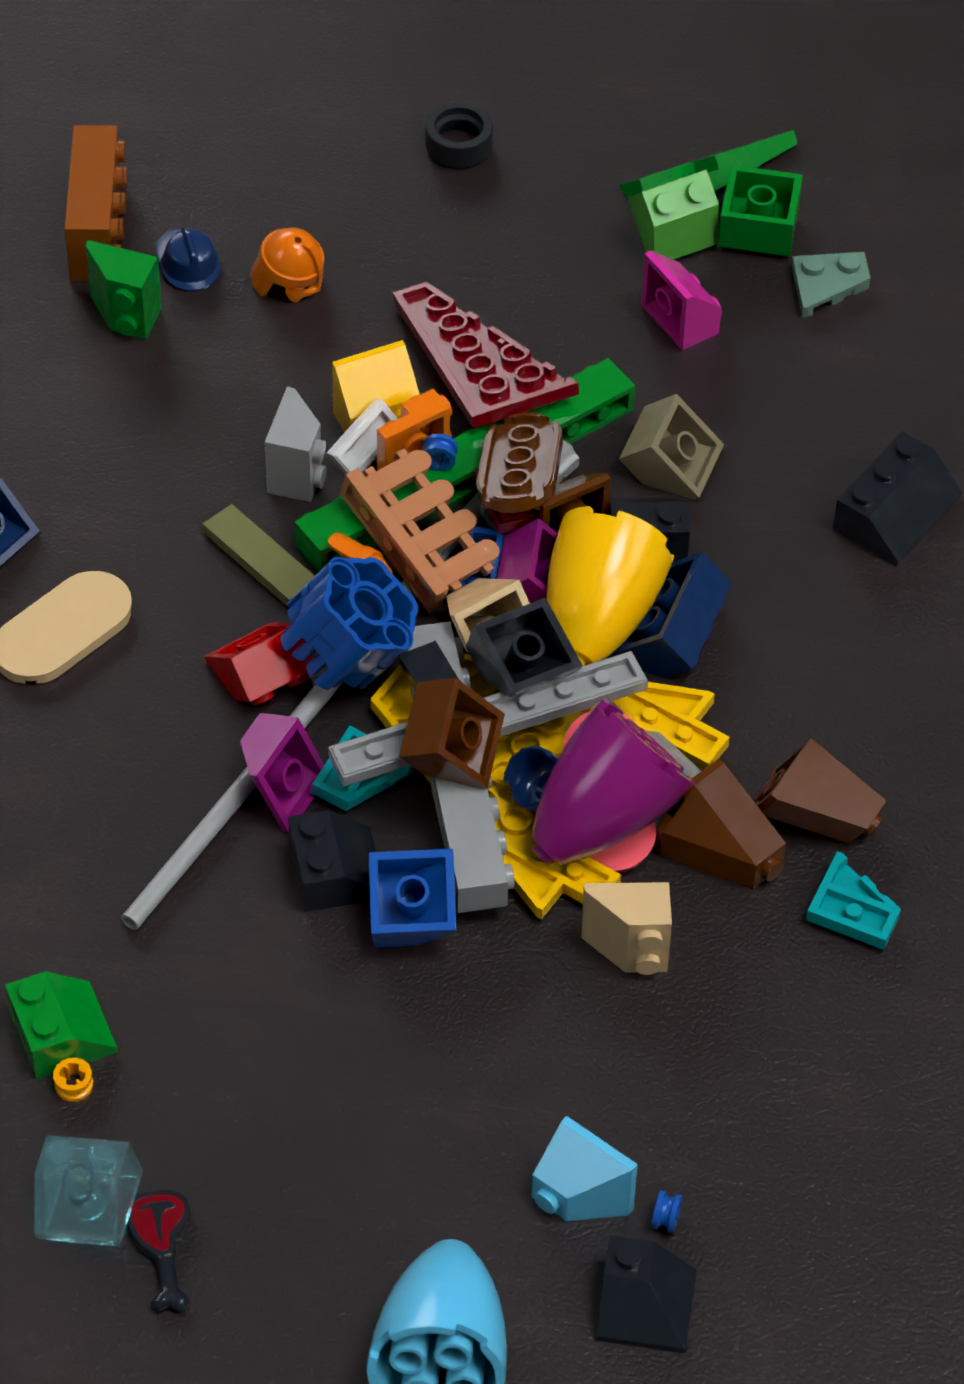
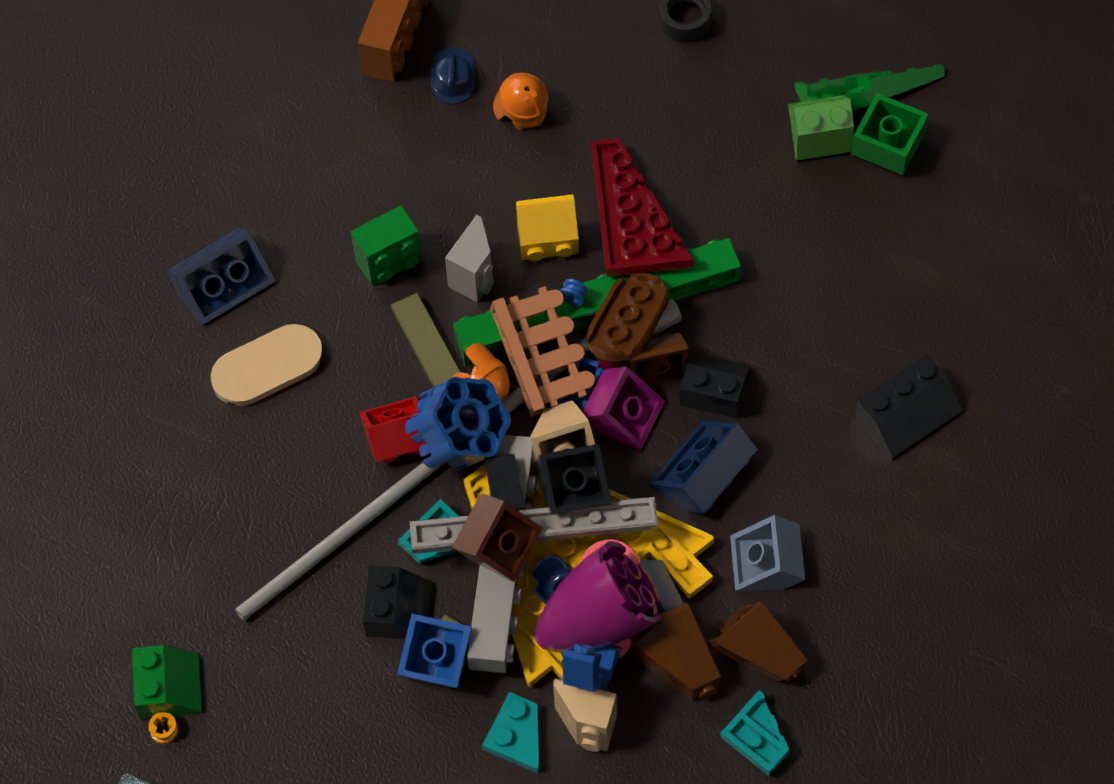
camera: 20 degrees right, 10 degrees up
(124, 288) = (394, 97): green slope -> none
(177, 453) = (386, 246): none -> green brick
(281, 764) = (378, 521): magenta slope -> none
(359, 443) = (528, 264): white tile -> none
(419, 418) = (570, 262): orange plate -> none
(544, 977) = (515, 733): none -> teal wing
(604, 578) = (655, 433): yellow cylinder -> none
(623, 850) = (589, 667): none -> blue slope
(671, 448) = (753, 324): dark tan slope -> none
(678, 301) = (802, 198): dark pink slope -> none
(788, 700) = (767, 556): none -> sand blue slope
(828, 278) = (926, 201): sand green wing -> none

